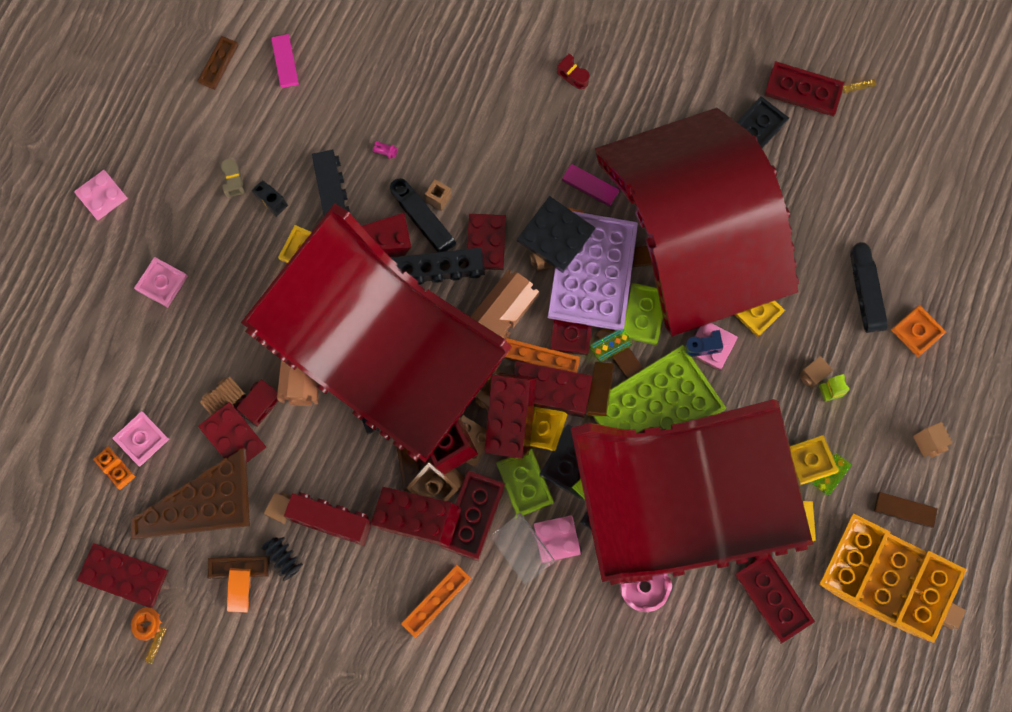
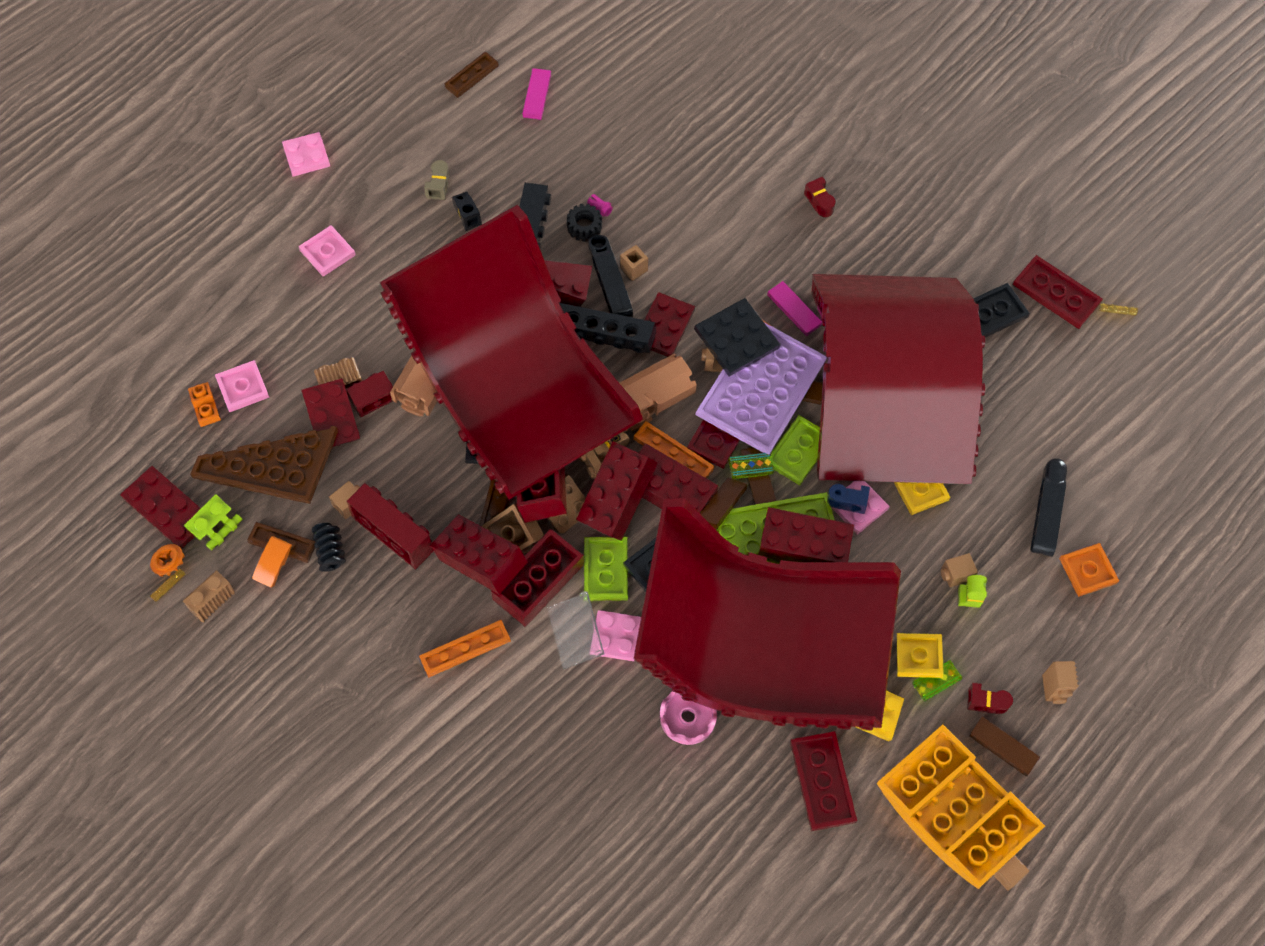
camera: 20 degrees right, 10 degrees down
(165, 572) = (207, 517): none -> lime plate
(197, 642) = (209, 596): none -> medium nougat brick
(375, 161) = (584, 212): none -> black tyre
(547, 428) = (645, 520): yellow plate -> none
(684, 397) = (804, 538): none -> dark red brick
(880, 477) = (988, 701): none -> dark red leg

